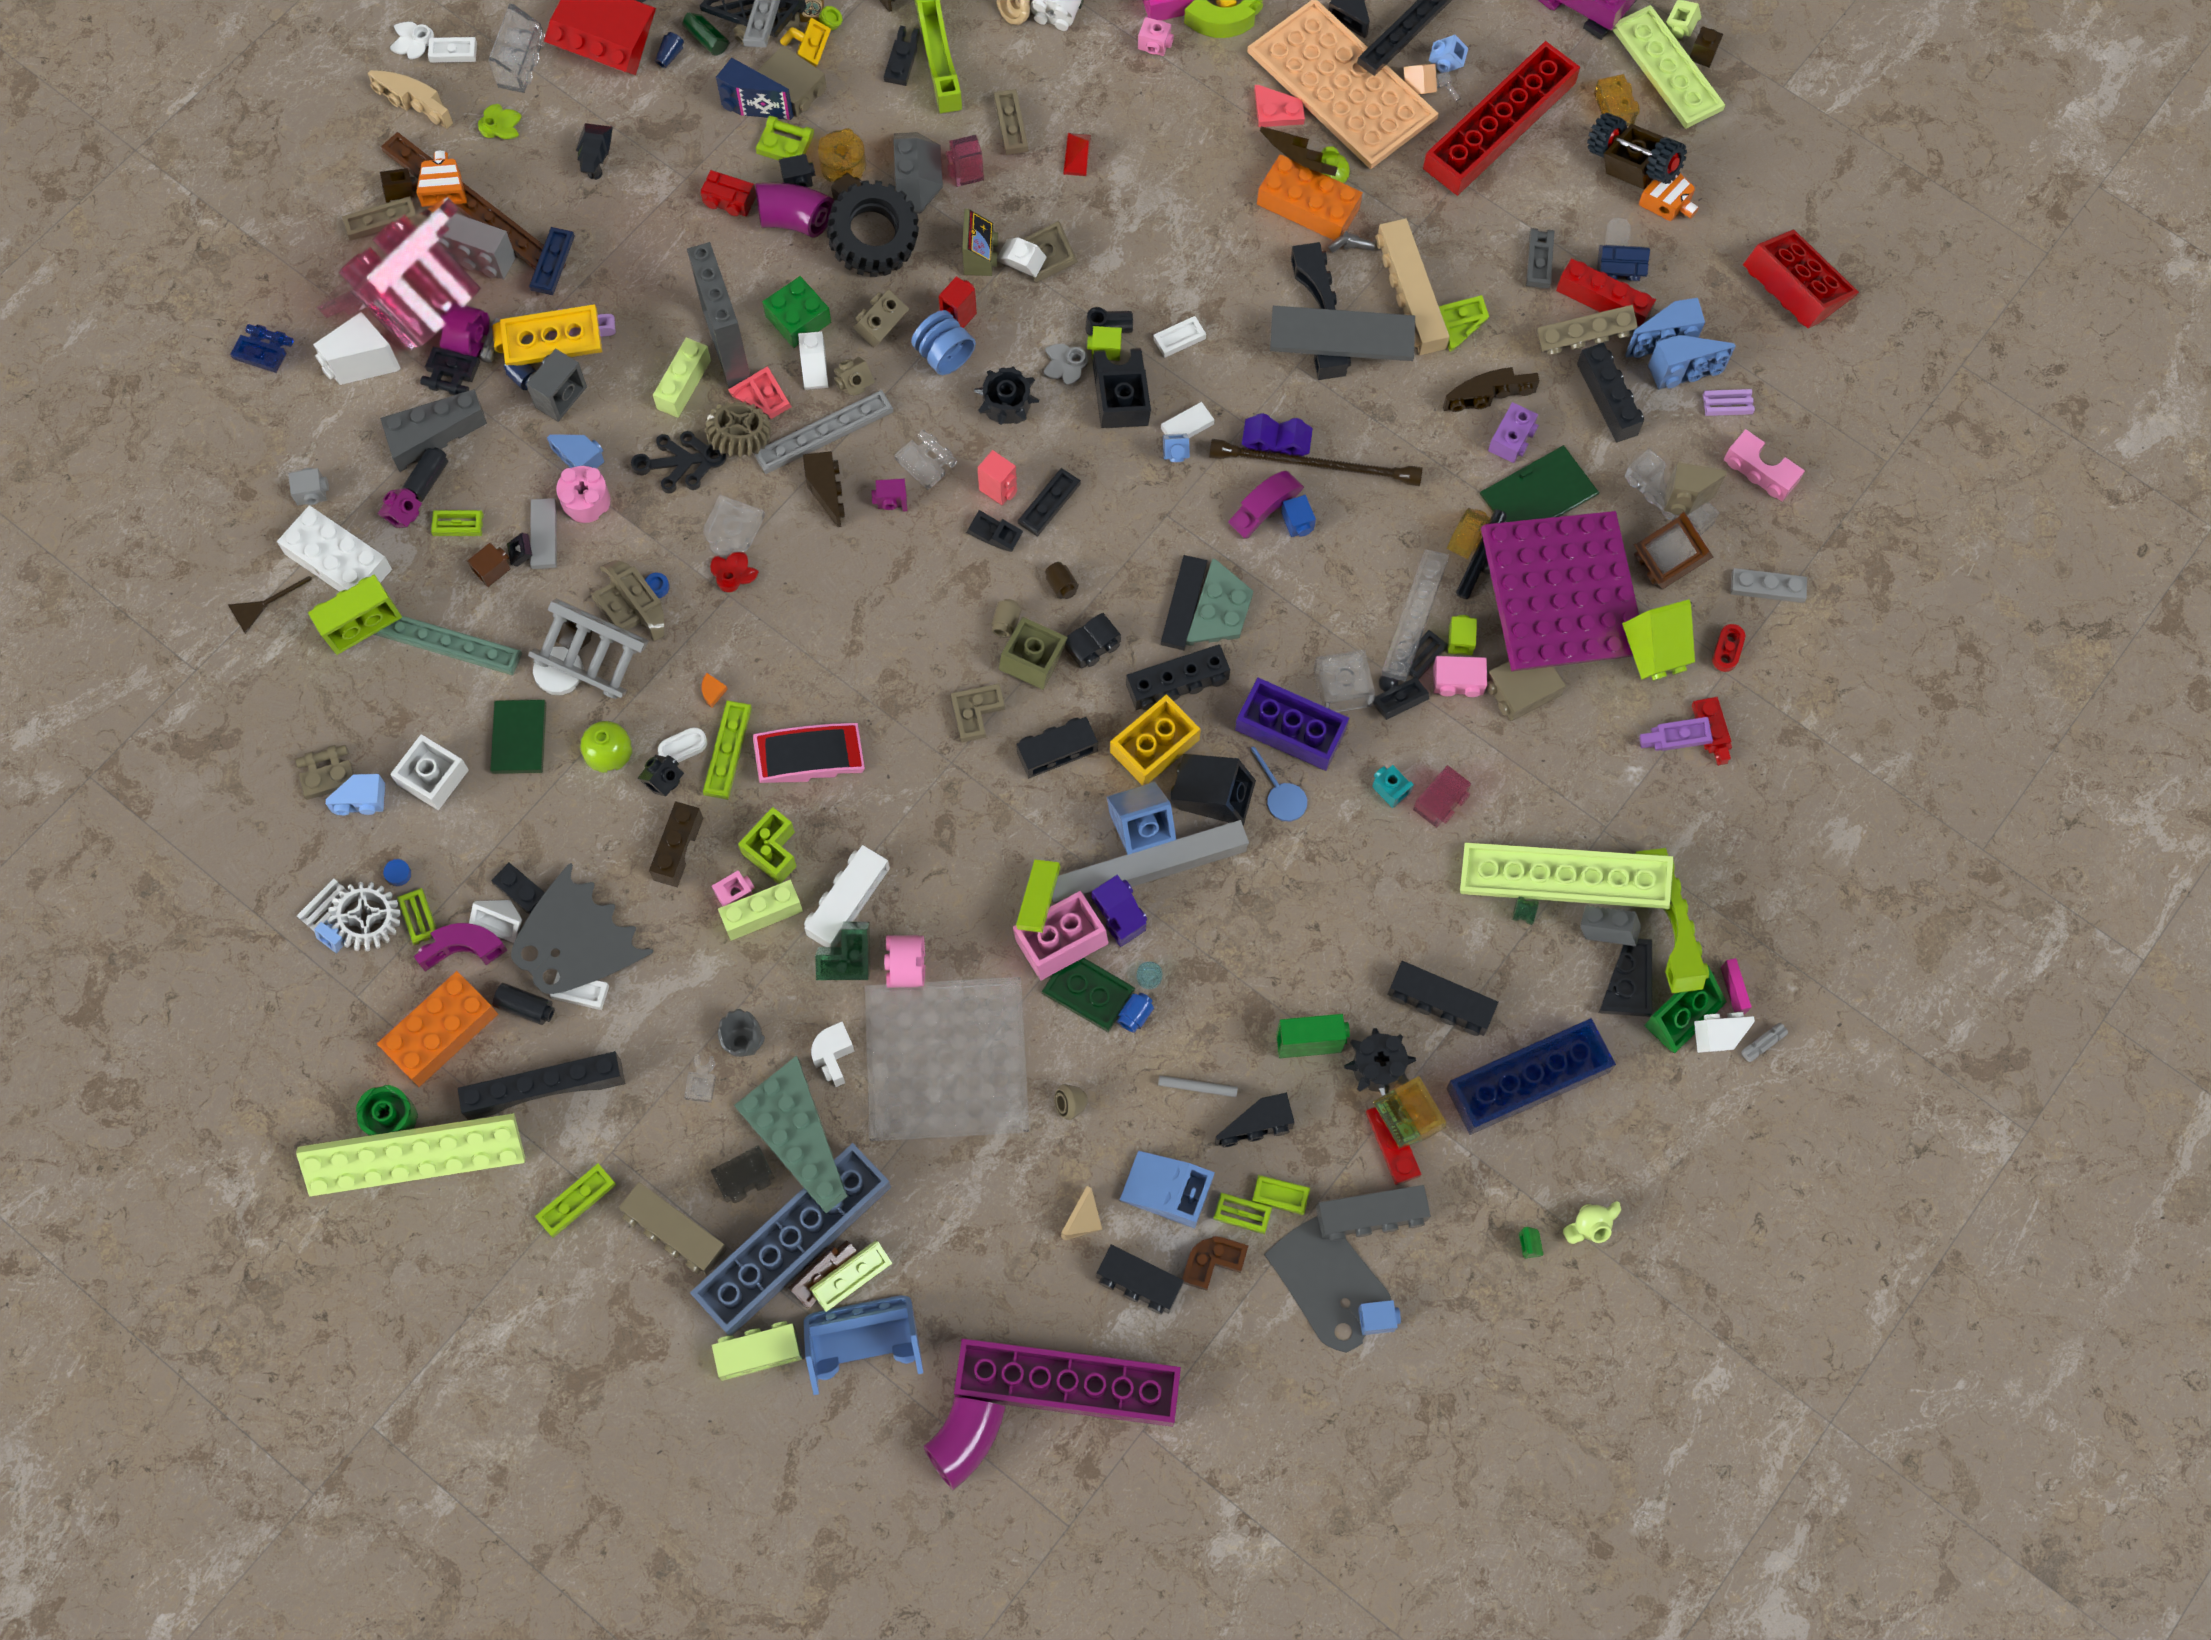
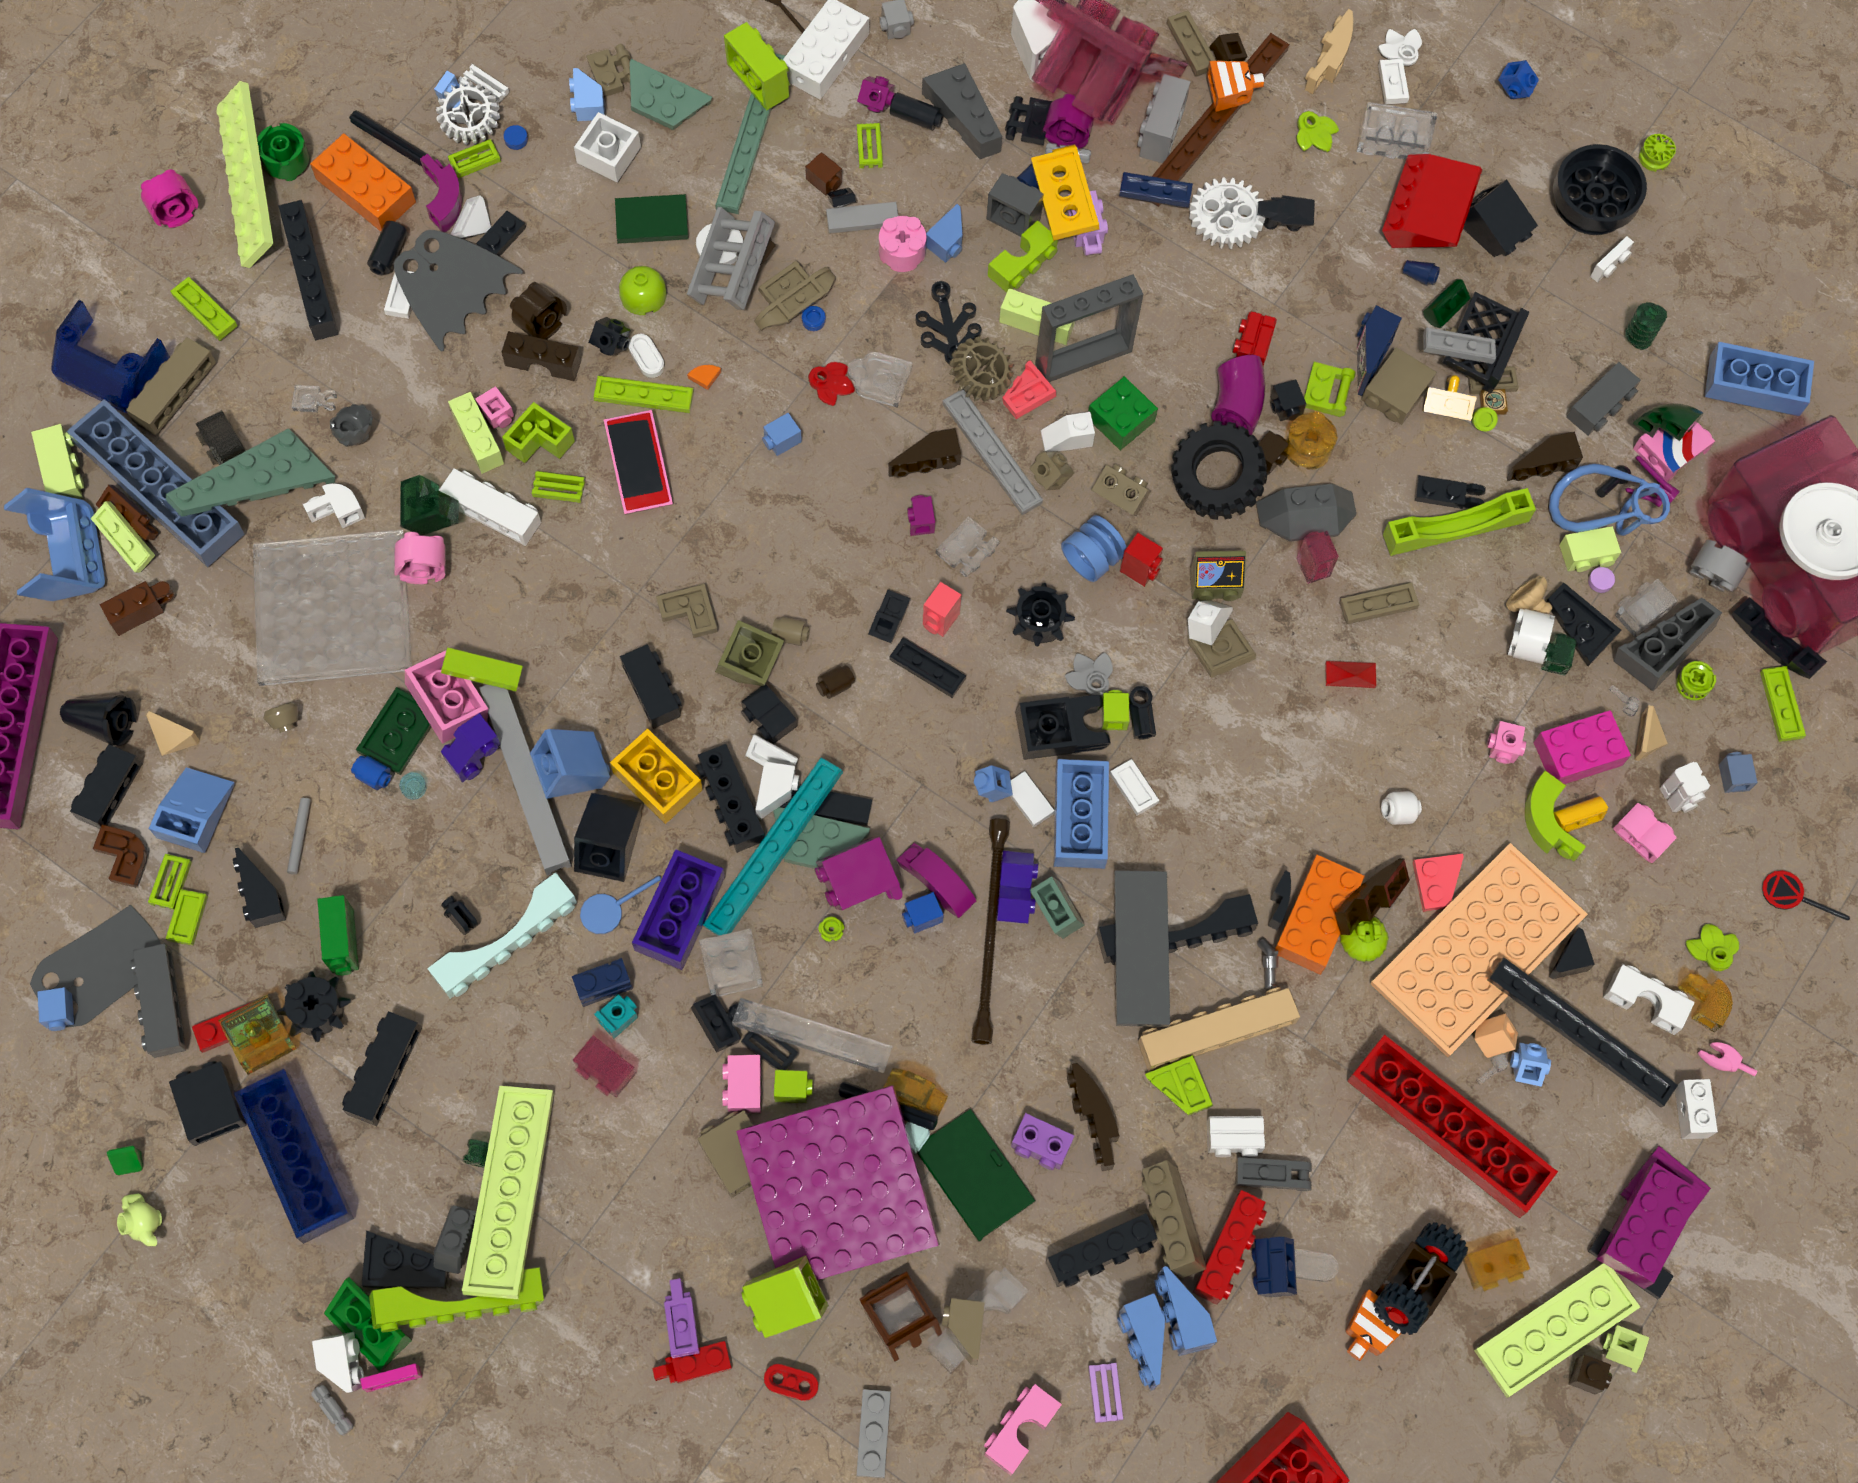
camera: 85 degrees right, 0 degrees up
(370, 719) = (663, 97): none -> sand green wing
(379, 1006) = (387, 137): none -> black axle
(433, 1238) = (169, 199): none -> dark pink brick
(602, 194) = (1226, 213): none -> white gear
(625, 400) = (1010, 270): none -> lime arch
(625, 844) = (538, 311): none -> dark brown brick
(648, 1316) = (96, 375): none -> clear blue windscreen
(790, 617) = (781, 434): none -> medium blue brick
(831, 814) = (542, 477): none -> lime tile
(935, 1256) = (136, 605): none -> reddish brown brick
(1062, 1289) = (101, 717): none -> black cone
(1136, 639) = (764, 751): none -> white tile
(1173, 633) = (775, 787): none -> white slope
(1209, 376) = (1081, 813): none -> medium blue brick
(1211, 125) = (1401, 808): none -> white head
(1229, 637) = (773, 848): none -> teal tile
(1265, 562) = (858, 874): none -> magenta container
(1279, 846) = (460, 969): none -> light aqua arch
(1288, 927) = (459, 914): none -> black arm
(1291, 224) = (1281, 896): none -> black slope
(1299, 401) = (1057, 907): none -> sand green brick
(1312, 591) = (831, 922): none -> lime plate
(1361, 796) = (602, 982): none -> dark blue brick
(1475, 1164) = (207, 1103): none -> black brick
(1507, 282) = (1235, 1135): none -> white brick

